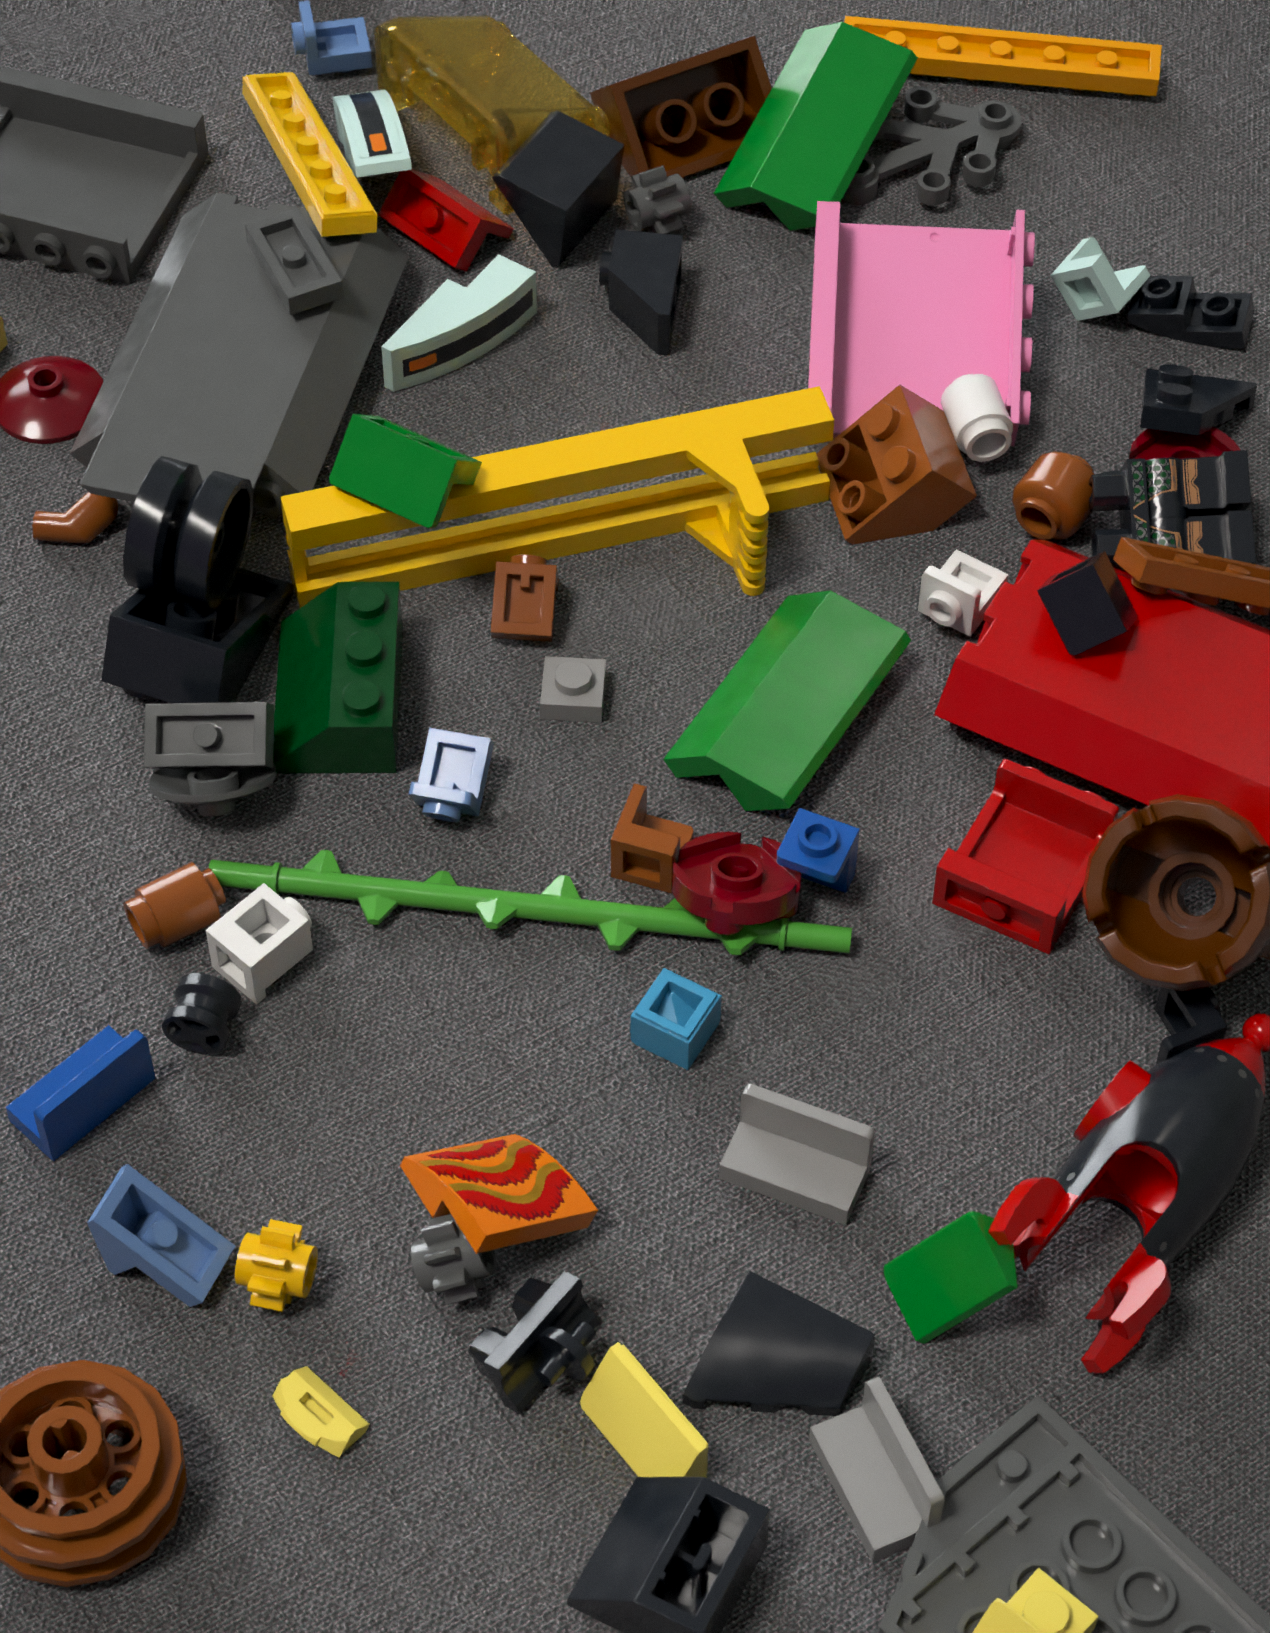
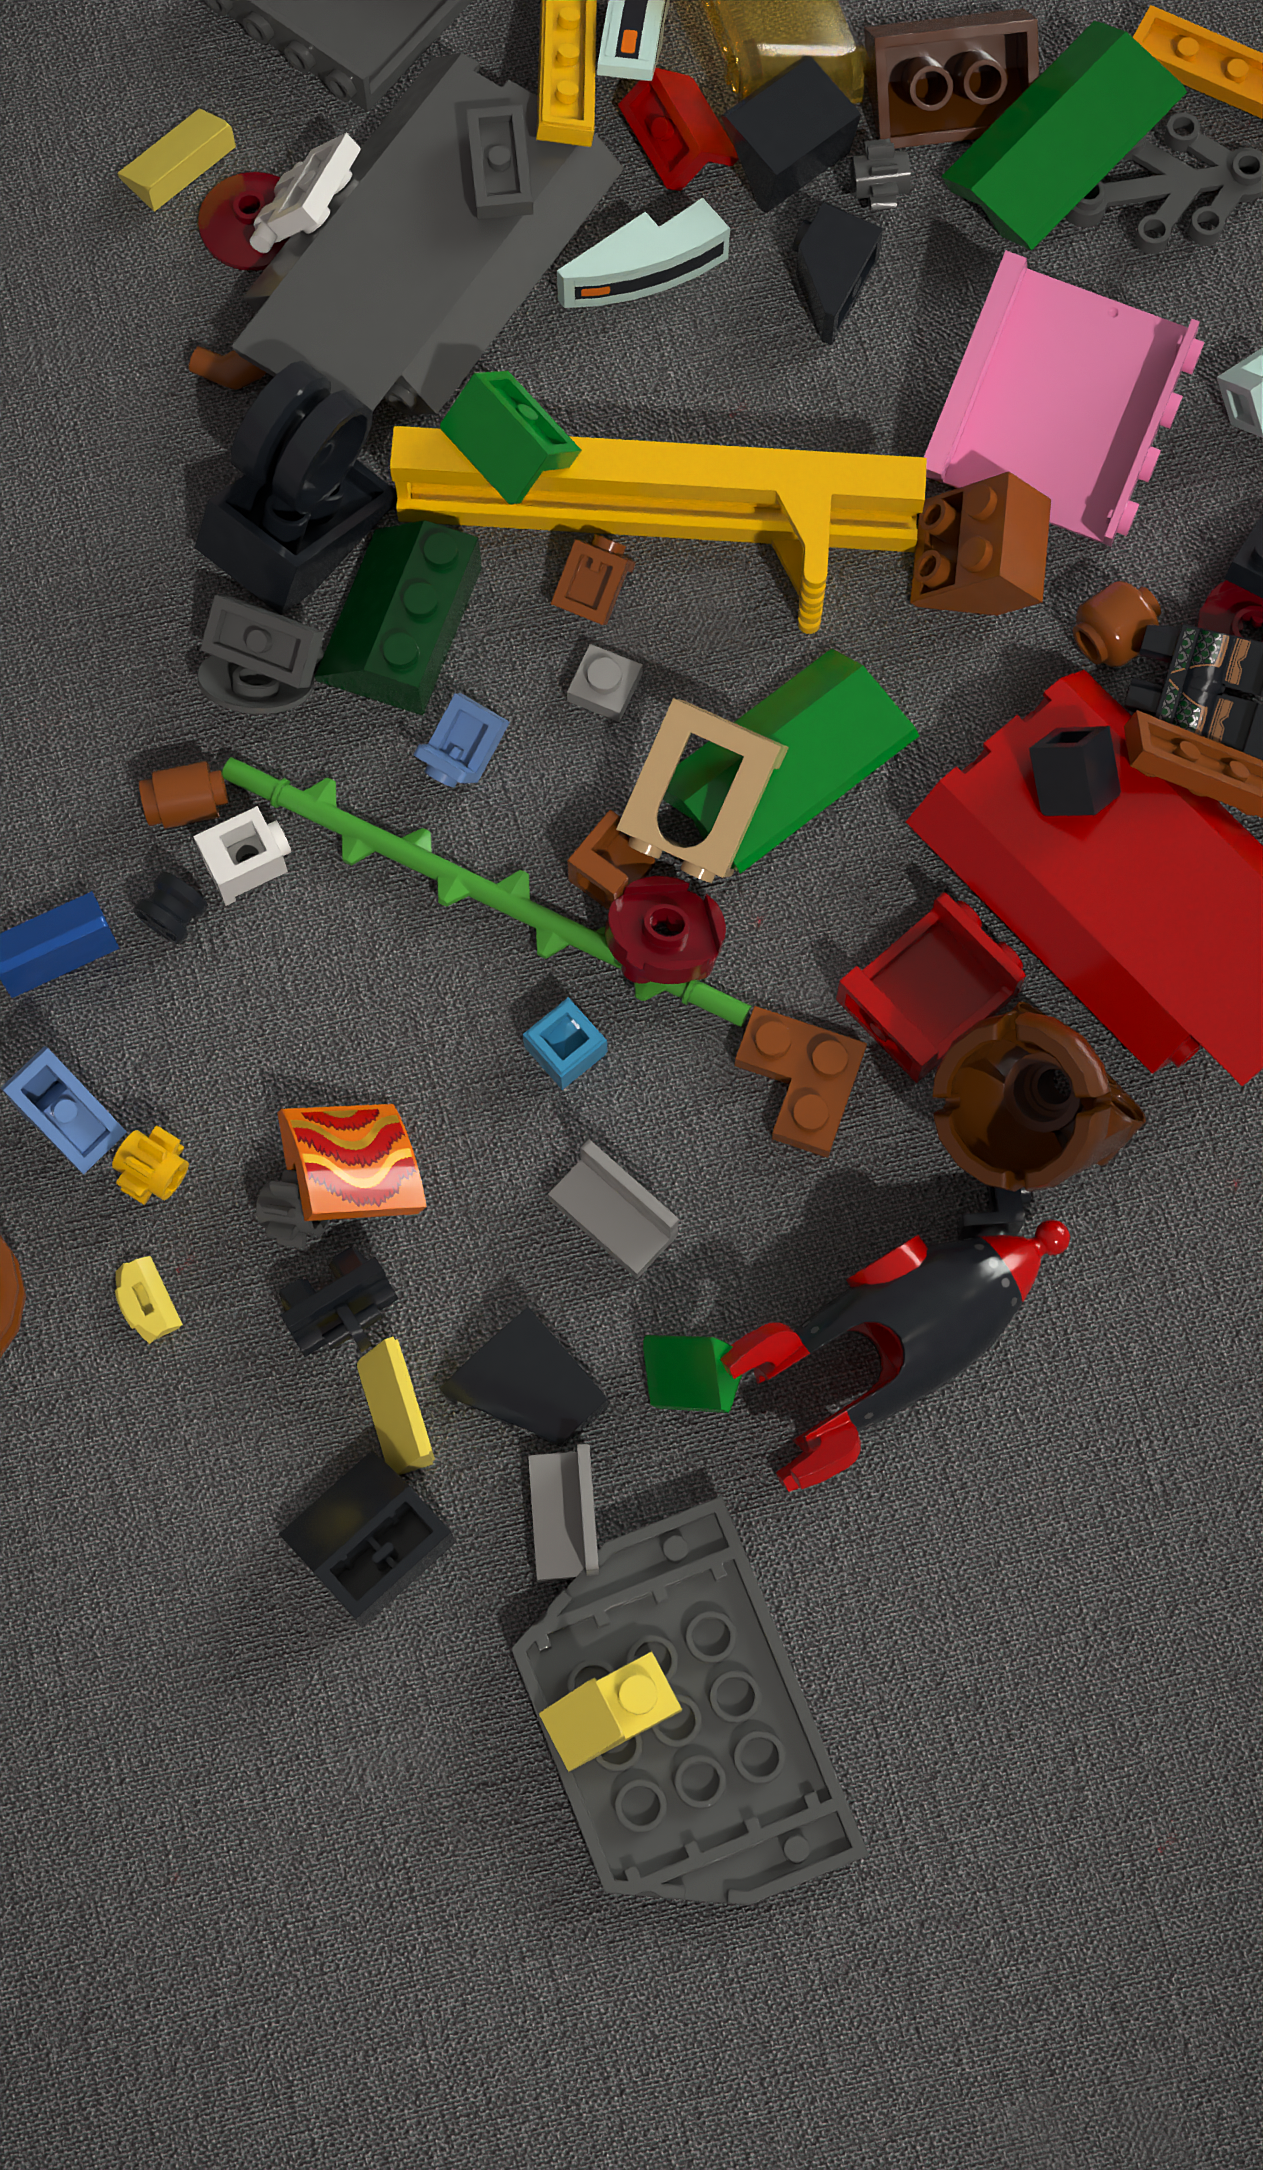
camera: 20 degrees right, 20 degrees up
(102, 347) = (305, 193): none -> white plate
(723, 674) = (720, 847): none -> tan panel
(820, 850) = (745, 928): blue bracket -> none
(944, 966) = (815, 1065): none -> dark orange plate
(959, 591) = (988, 697): white bracket -> none
(977, 417) = (1077, 517): white brick -> none

